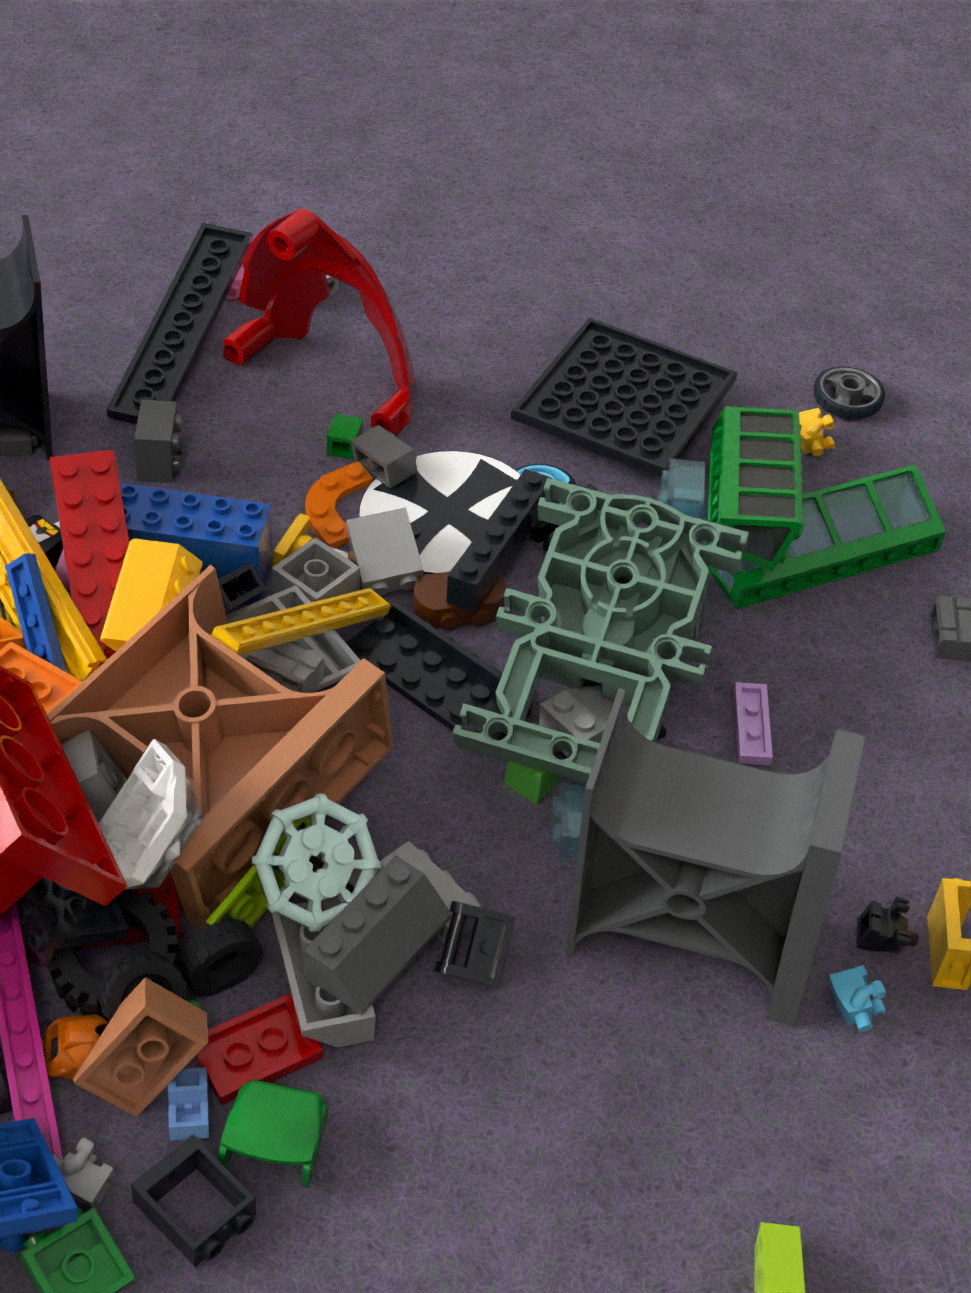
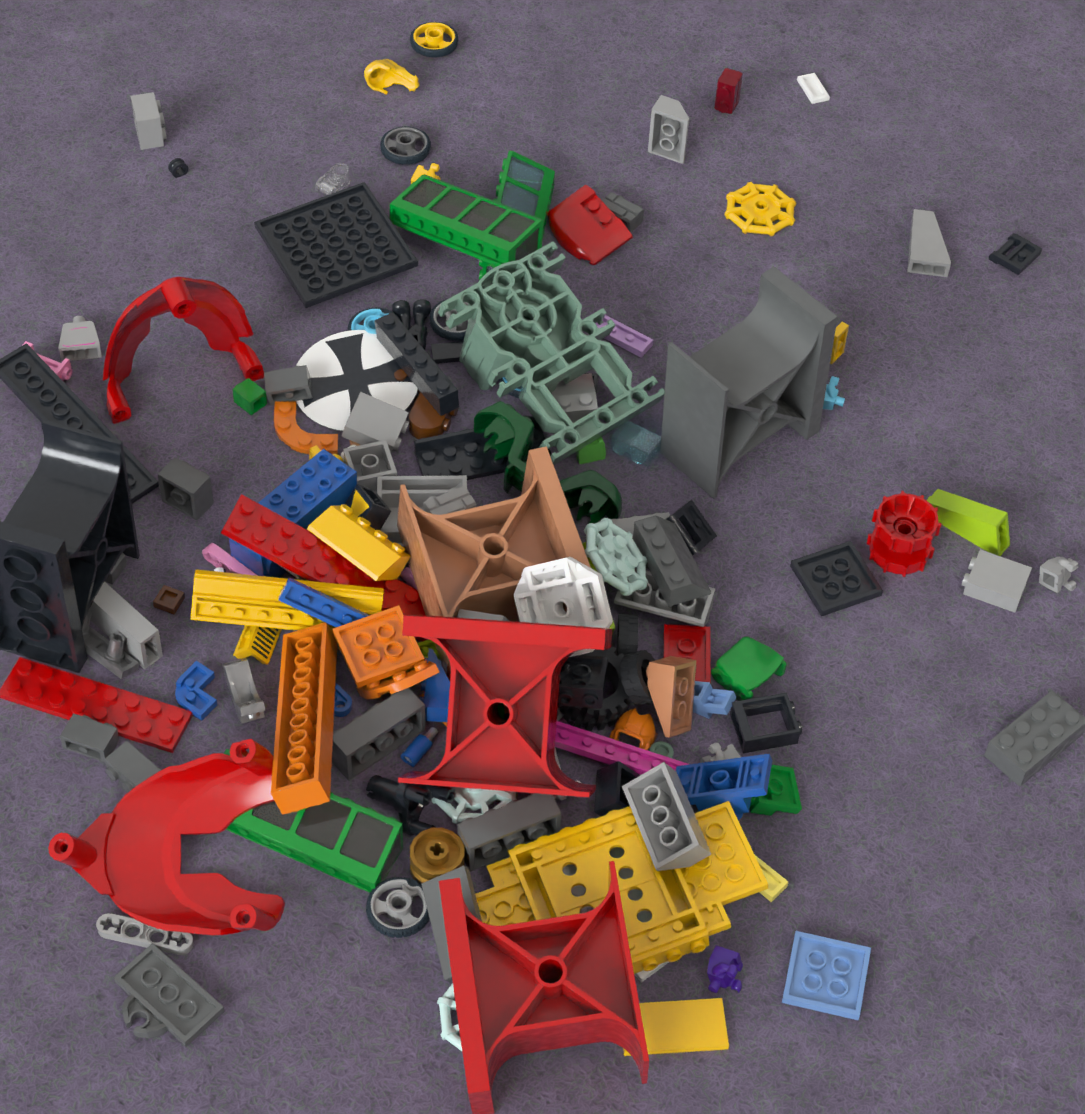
camera: 55 degrees left, 5 degrees up
(69, 1098) = (662, 748): none -> sand green tile
(301, 621) = (434, 478): yellow tile -> none
(451, 678) = (514, 439): none -> dark green piece
(532, 1173) = (836, 578): none -> black plate
(617, 242) = (175, 164): none -> black bush
(656, 185) = (148, 120): none -> light grey brick
(671, 1182) = (903, 533): none -> red piece
(684, 486) = (443, 268): clear light blue brick -> none
(738, 358) = (334, 180): none -> clear piece
(893, 606) = (587, 226): none -> red slope
(935, 326) = (385, 73): none -> yellow piece

